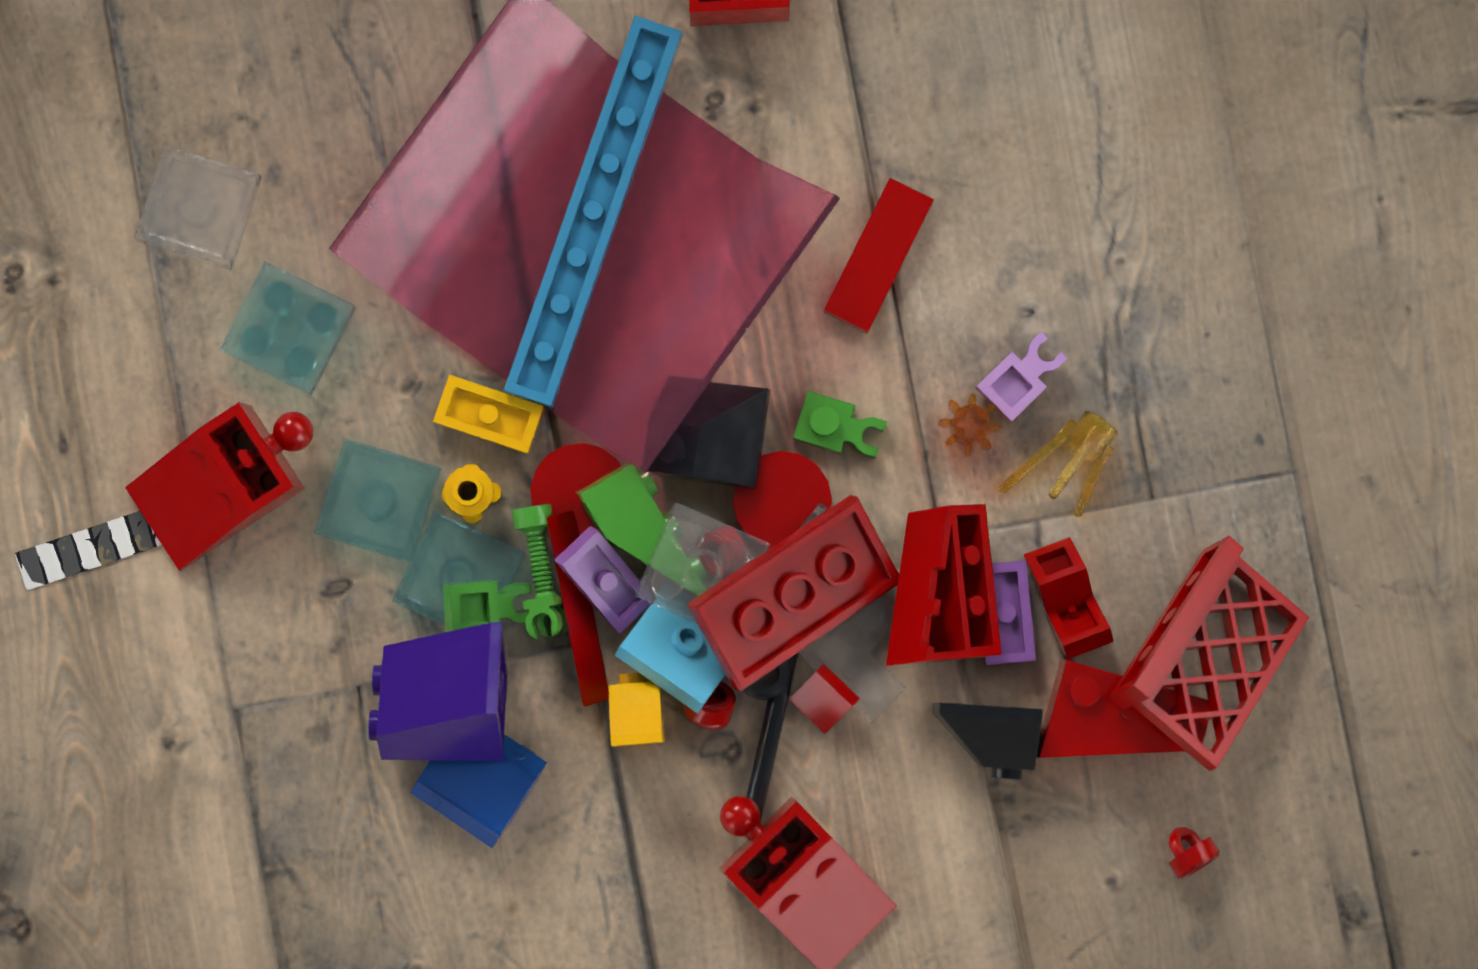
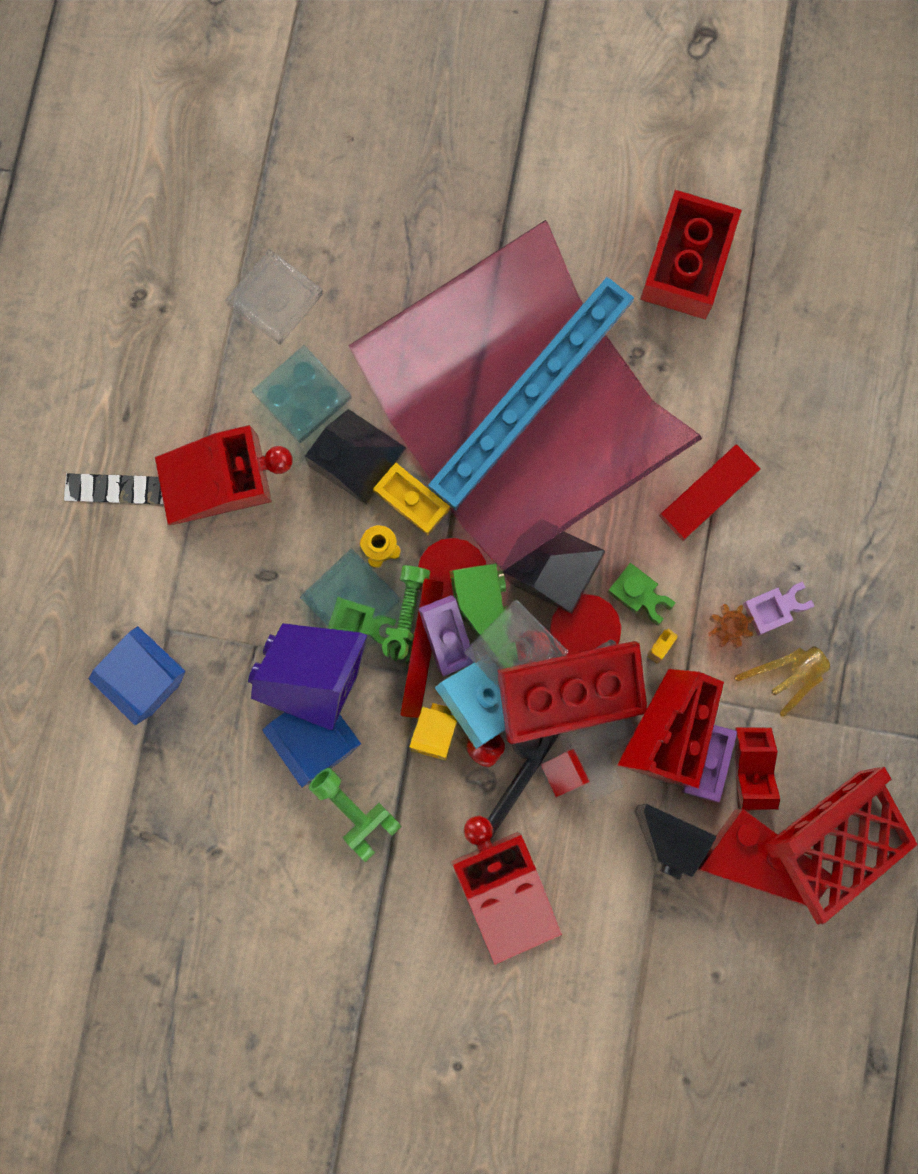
camera: 20 degrees right, 5 degrees down
(220, 785) = (137, 676): none -> blue slope
(377, 500) = (316, 527): clear light blue plate -> none
(390, 383) = (354, 454): none -> black slope
(523, 834) = (326, 786): none -> bright green bar
(890, 483) = (662, 645): none -> yellow tile
(1193, 859) = (779, 982): red tile -> none

